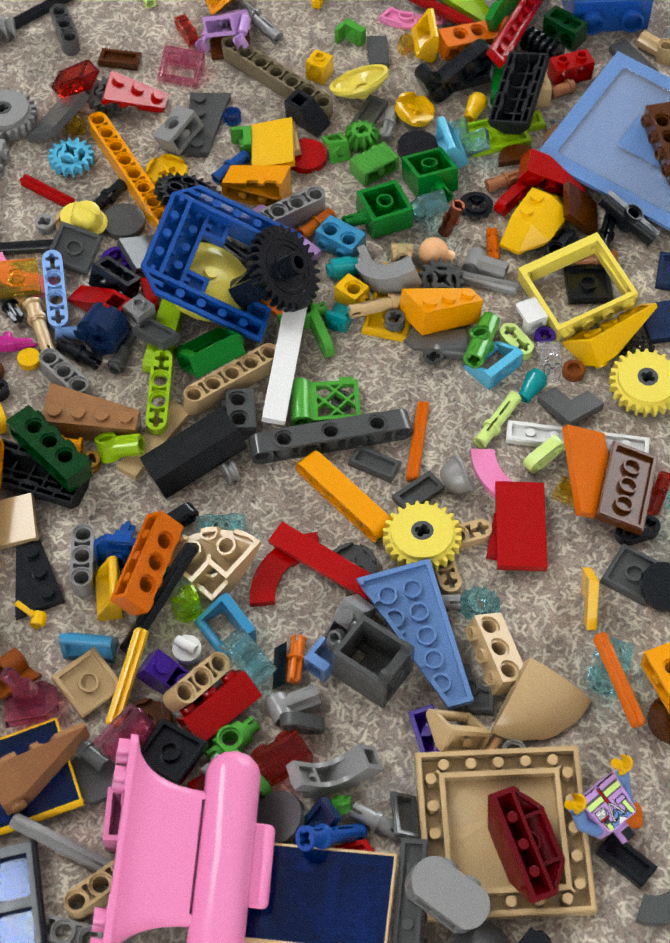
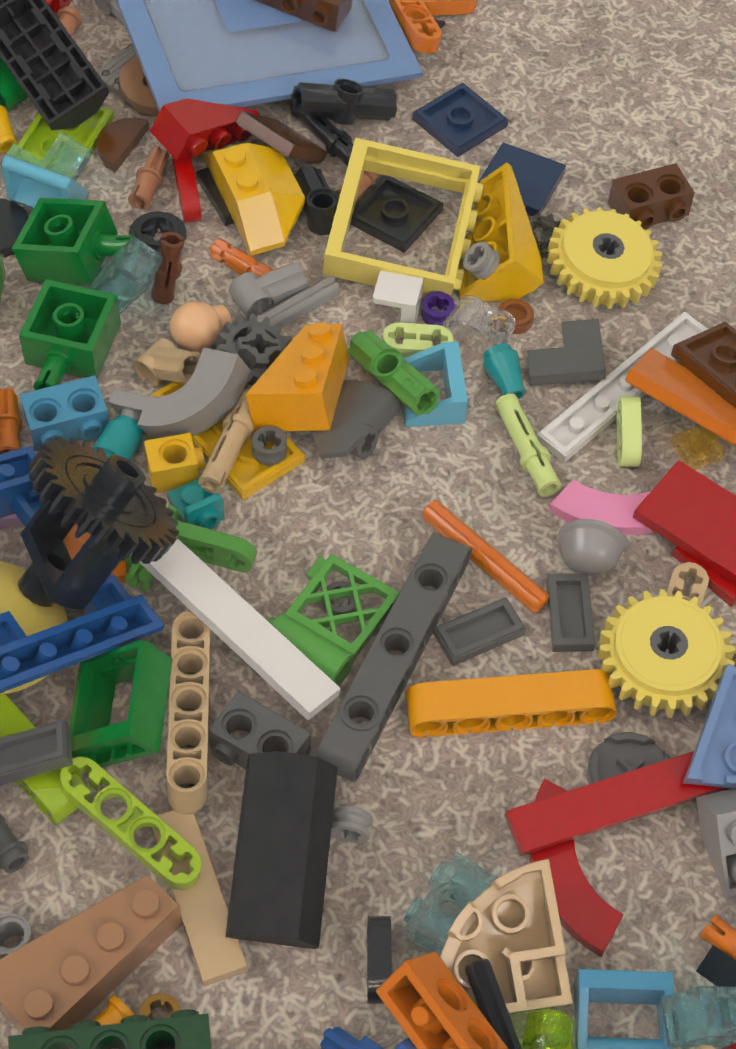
camera: 55 degrees left, 0 degrees up
(114, 447) = (171, 963): lime piece -> none
(582, 331) = (481, 260): none -> light grey bush

